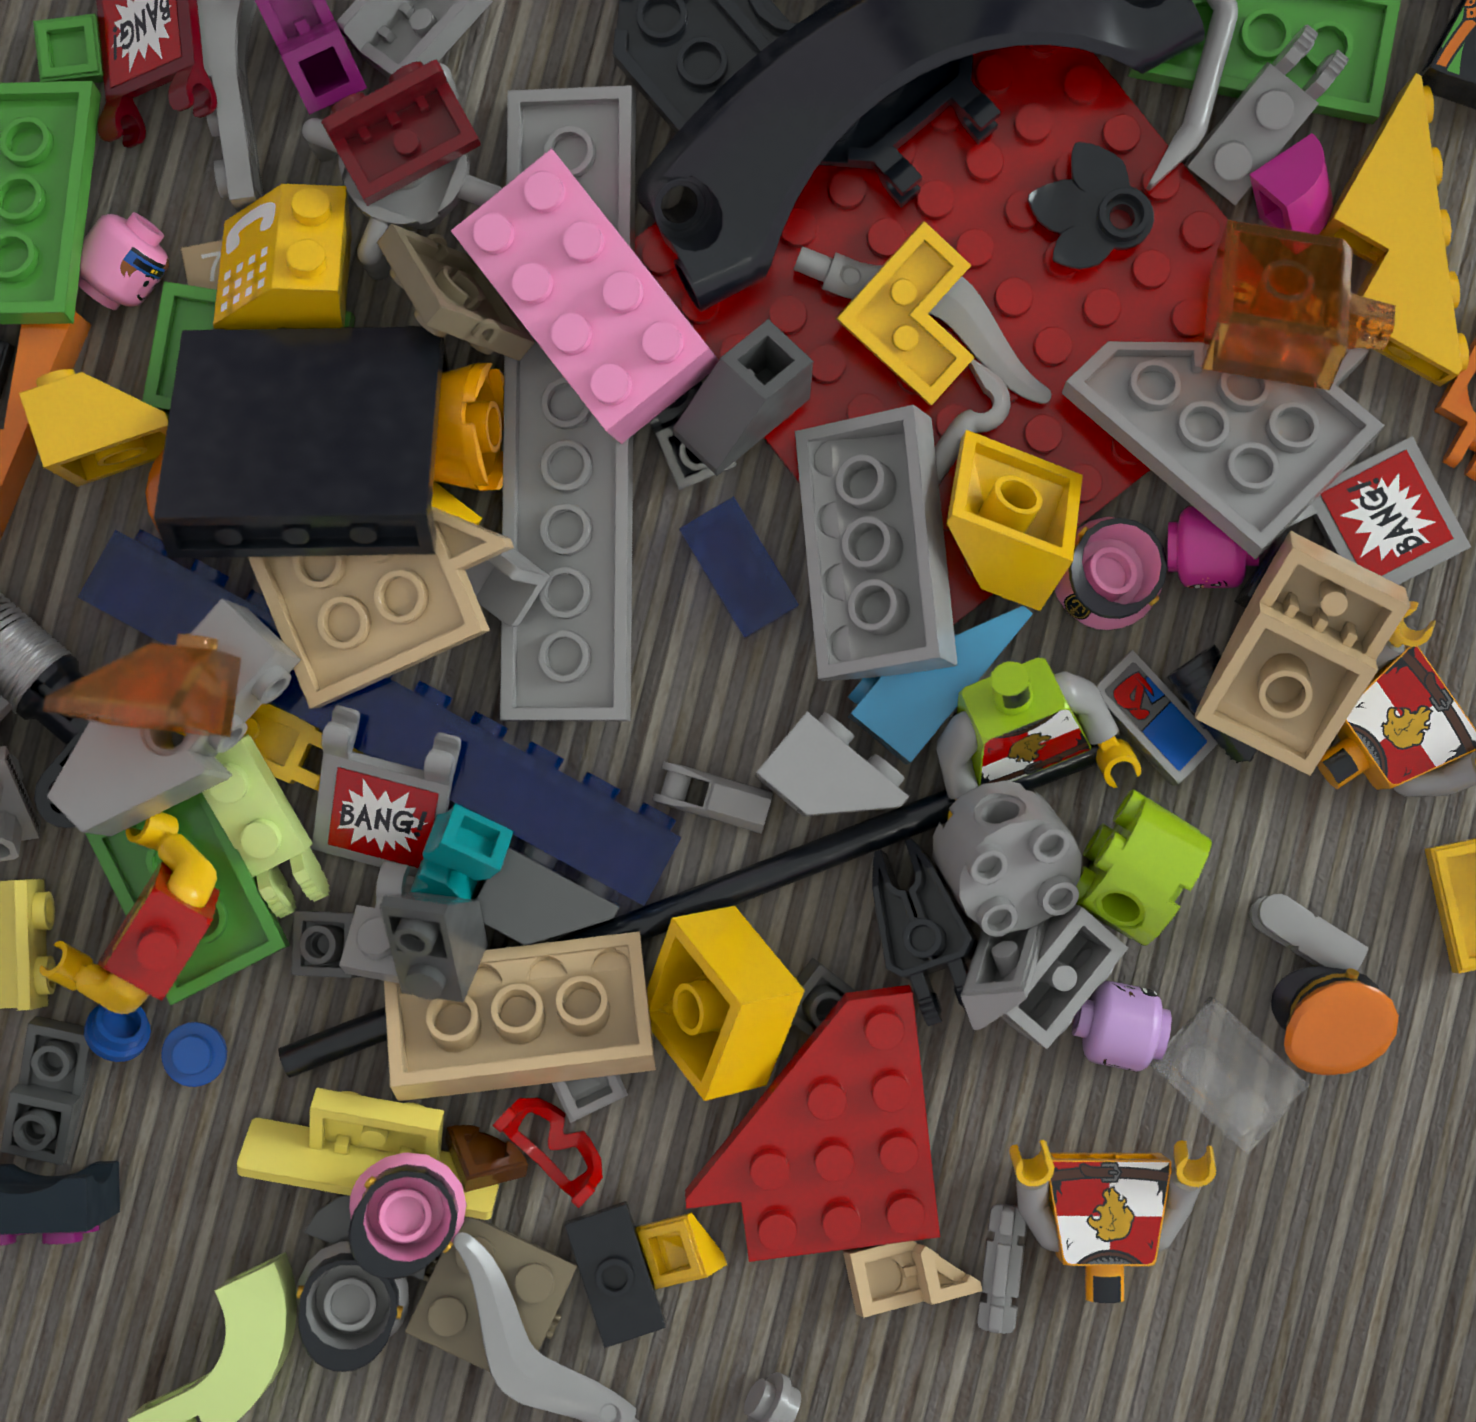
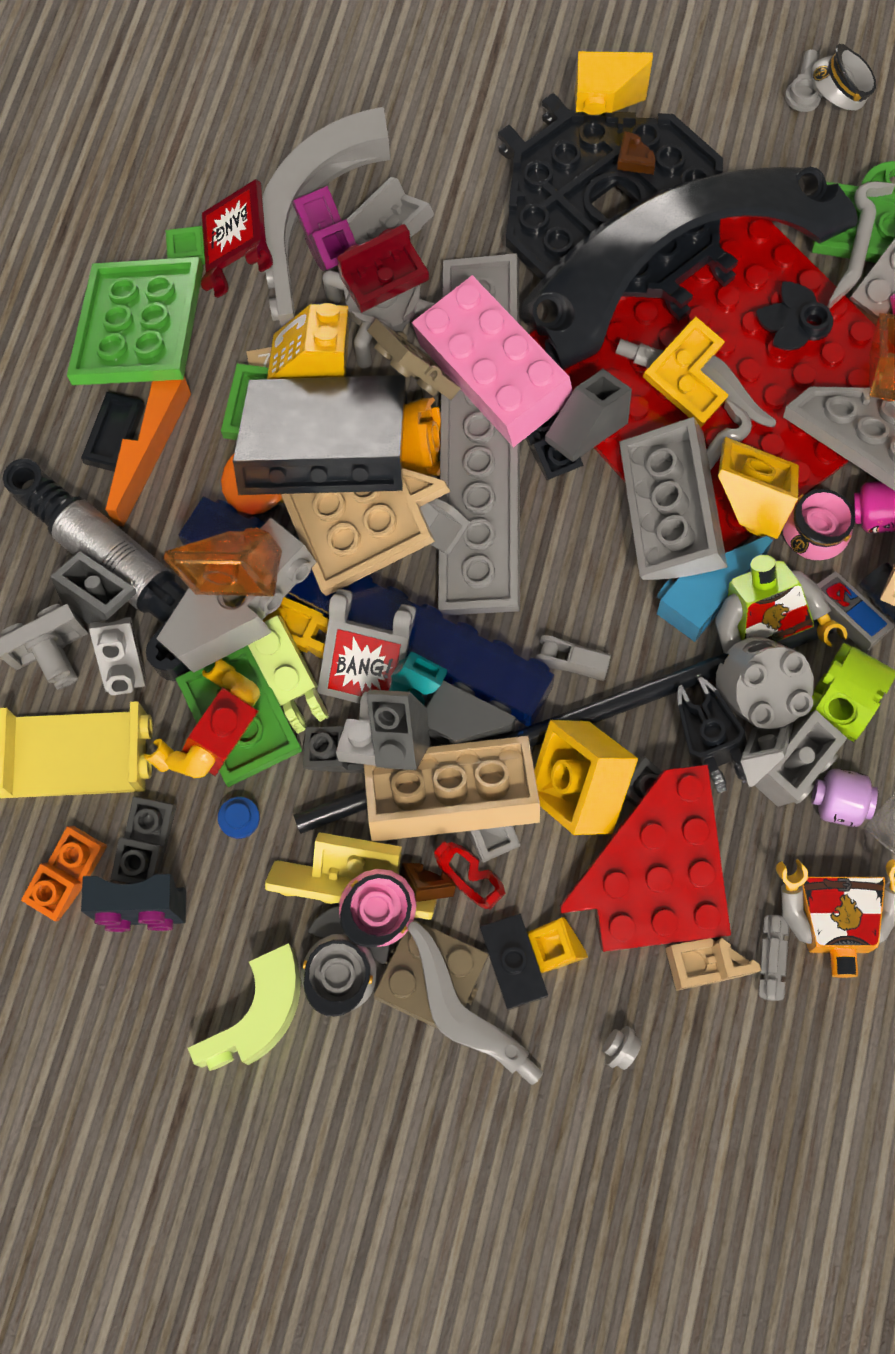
camera: 10 degrees right, 15 degrees down
(90, 427) = (195, 437): yellow slope -> none
(117, 1035) = (190, 800): blue plate -> none
(122, 260) = (212, 353): bright pink head -> none
(739, 567) = (586, 522): clear blue plate -> none
(825, 776) = (647, 636): light grey slope -> none

